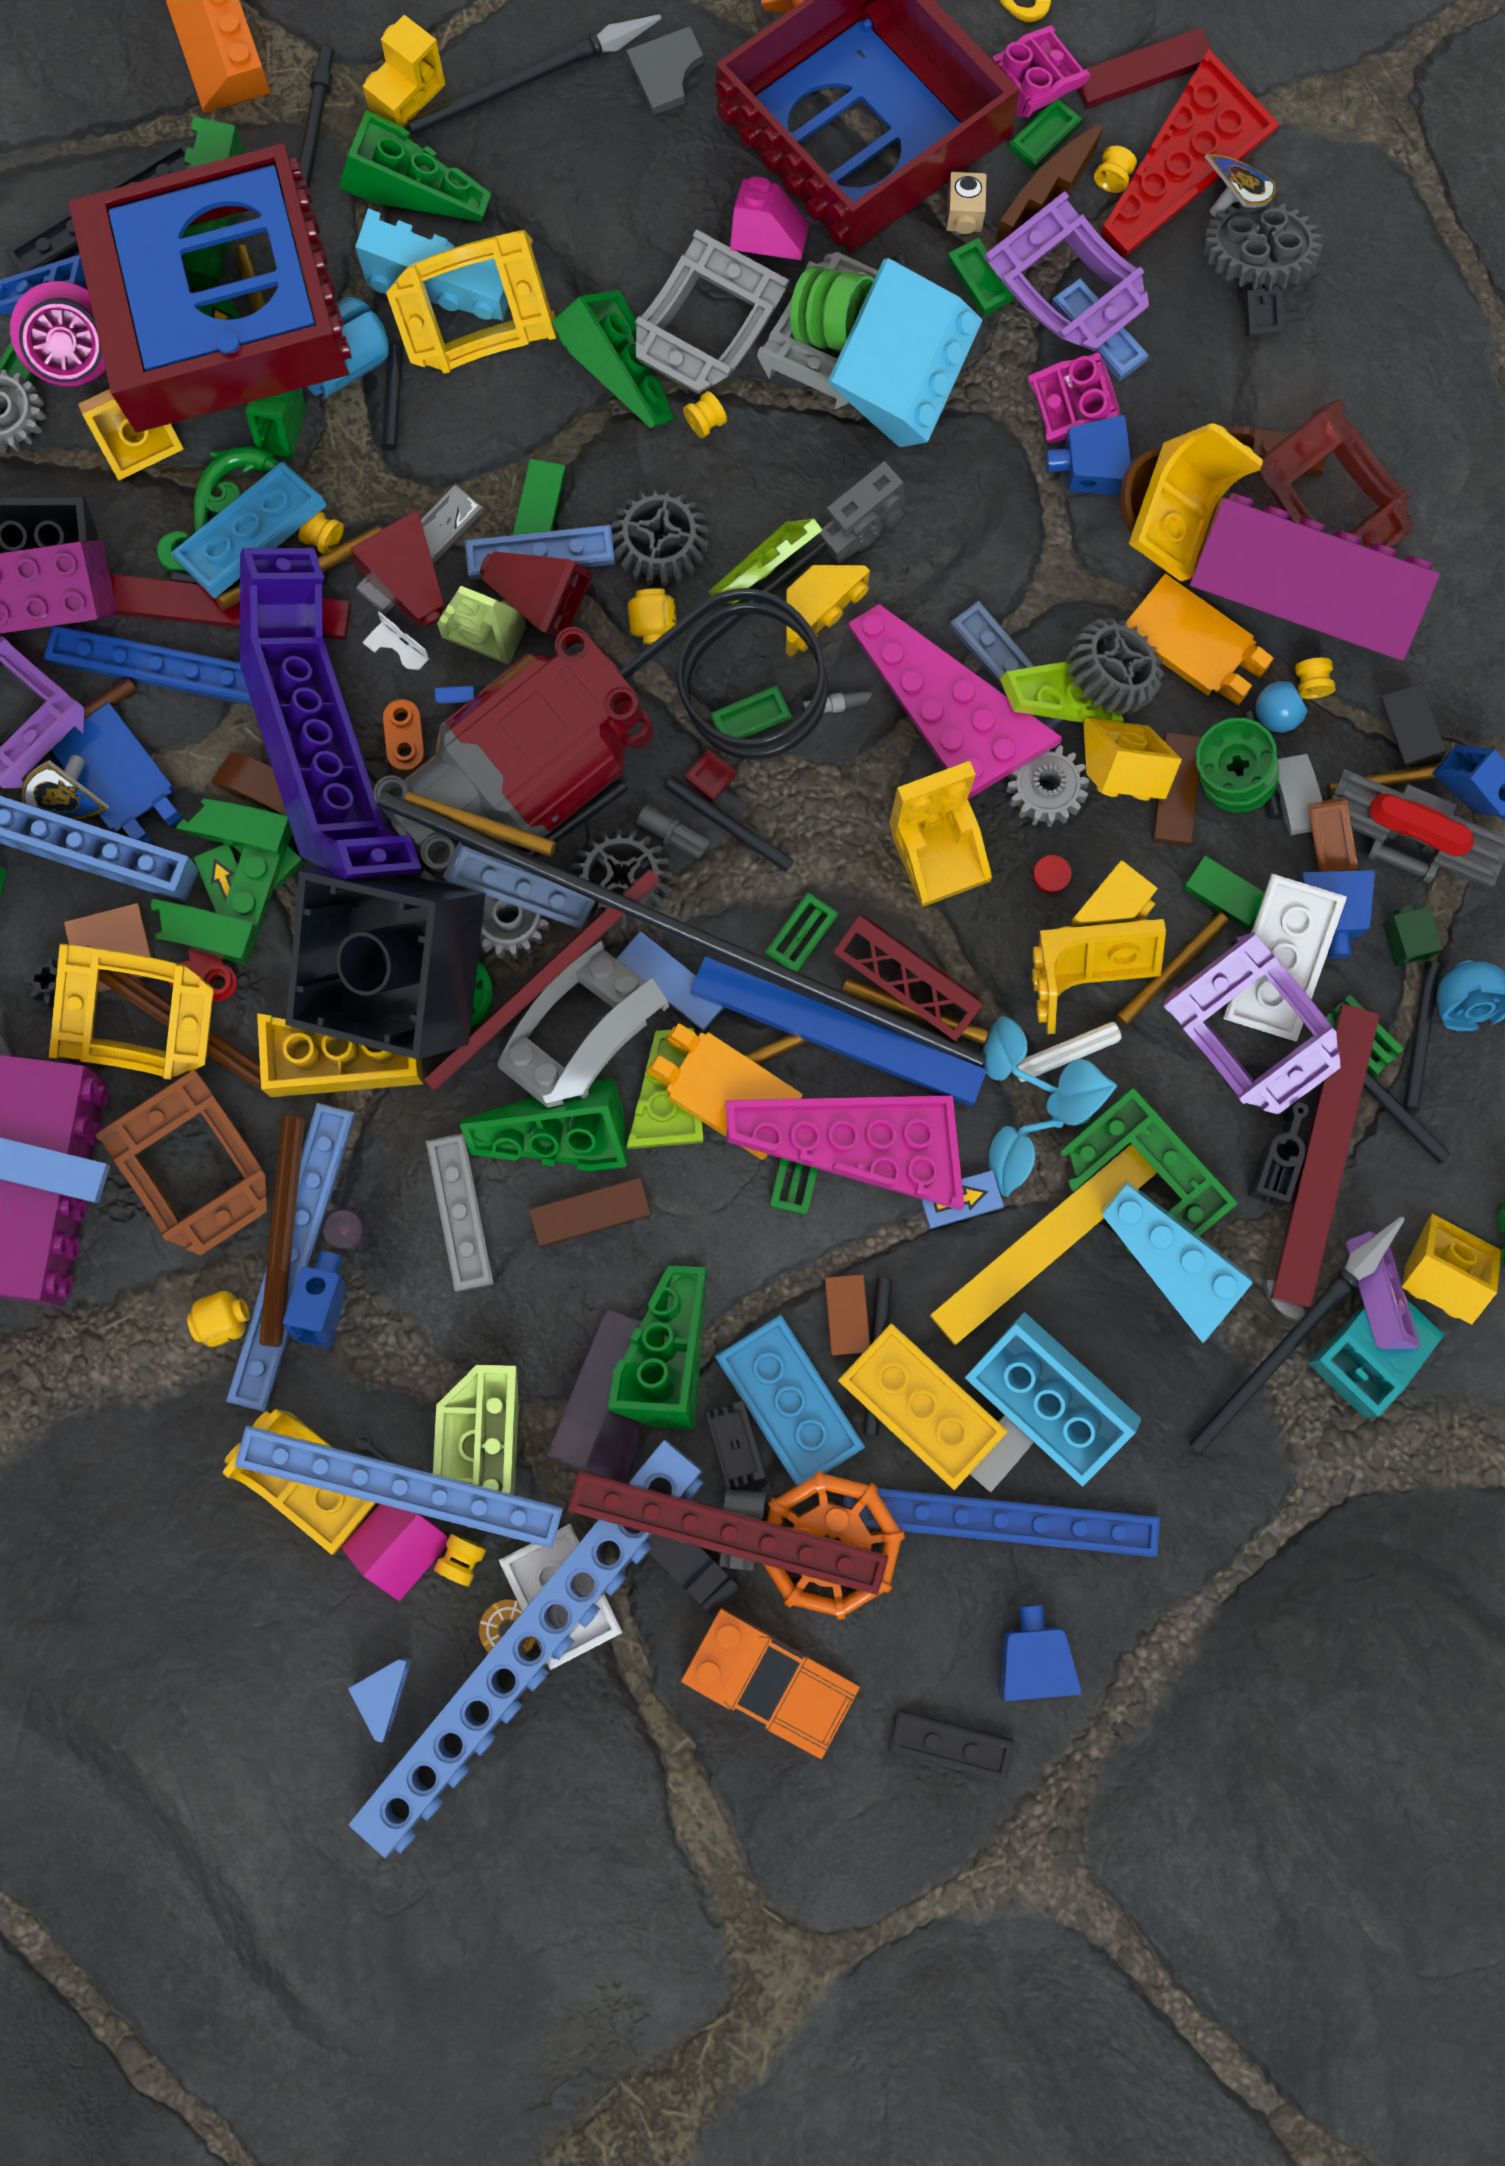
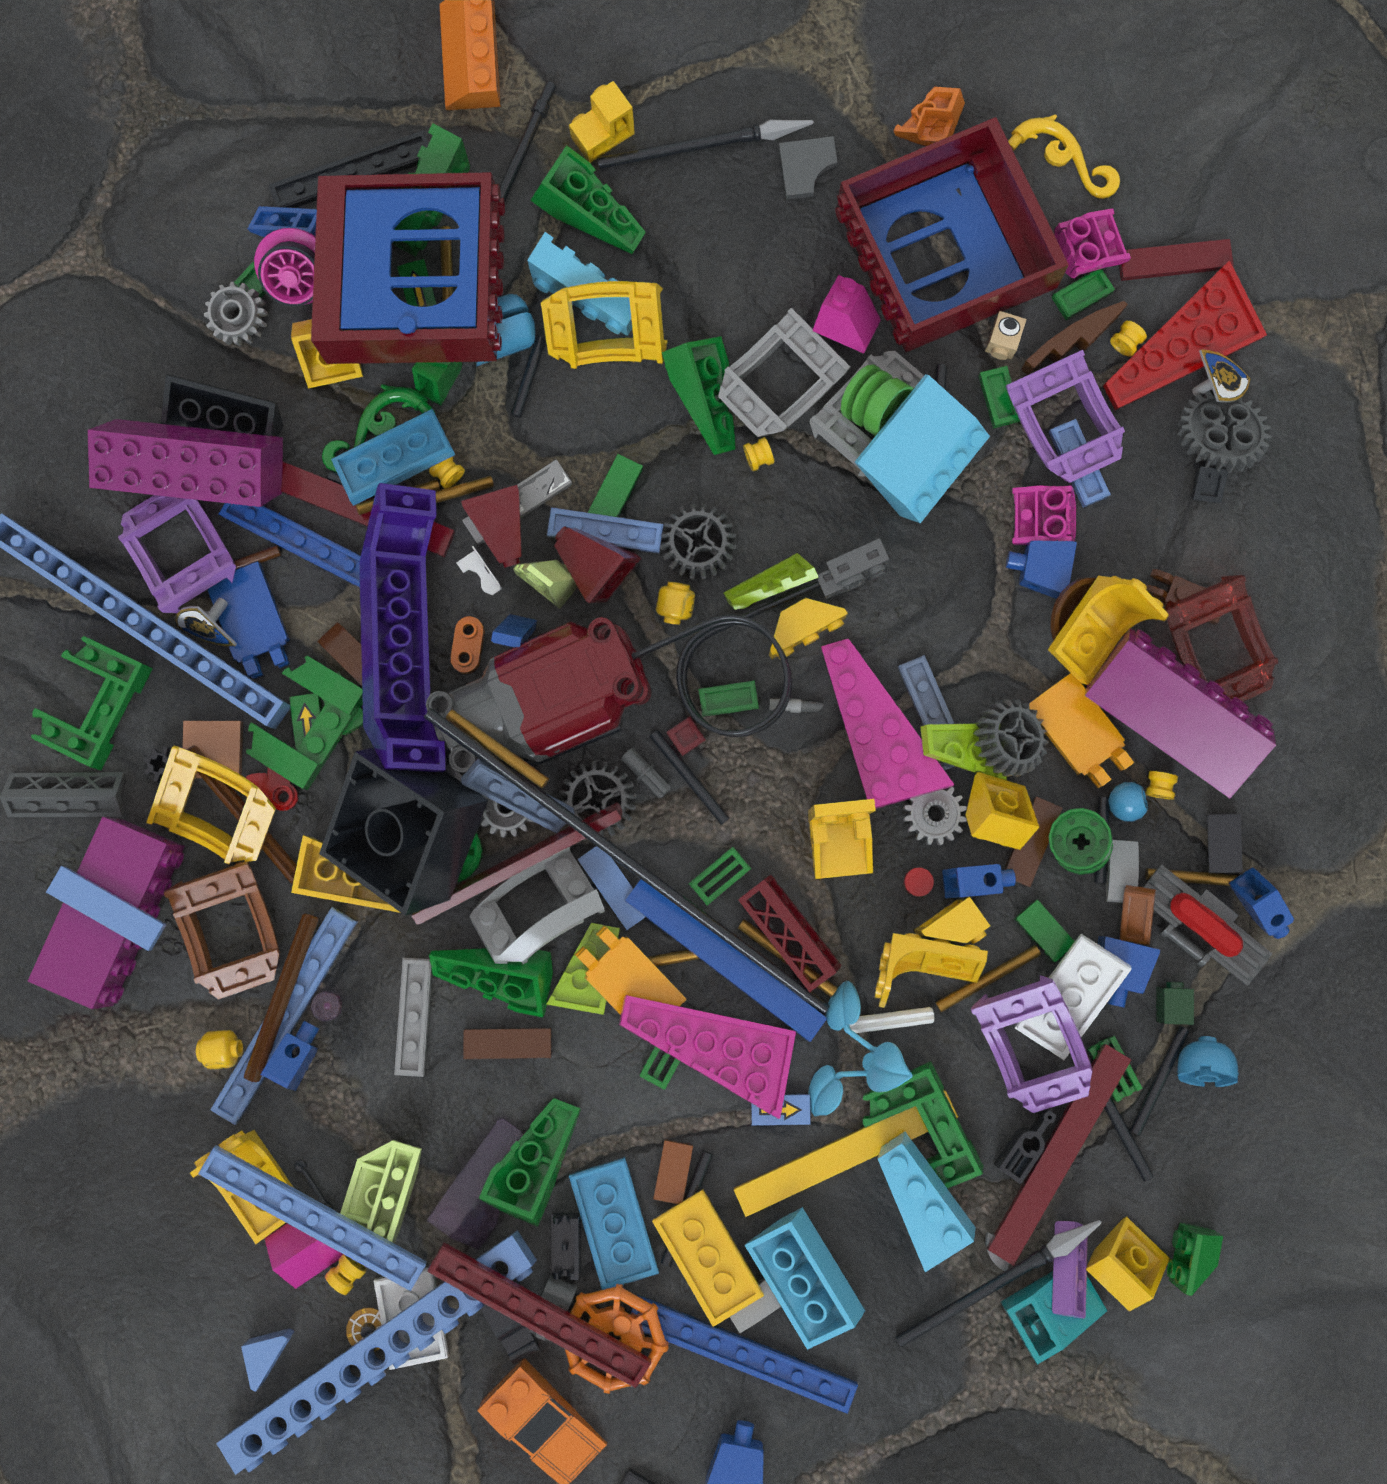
camera: 20 degrees right, 5 degrees up
(1127, 841) = (976, 880): none -> blue torso

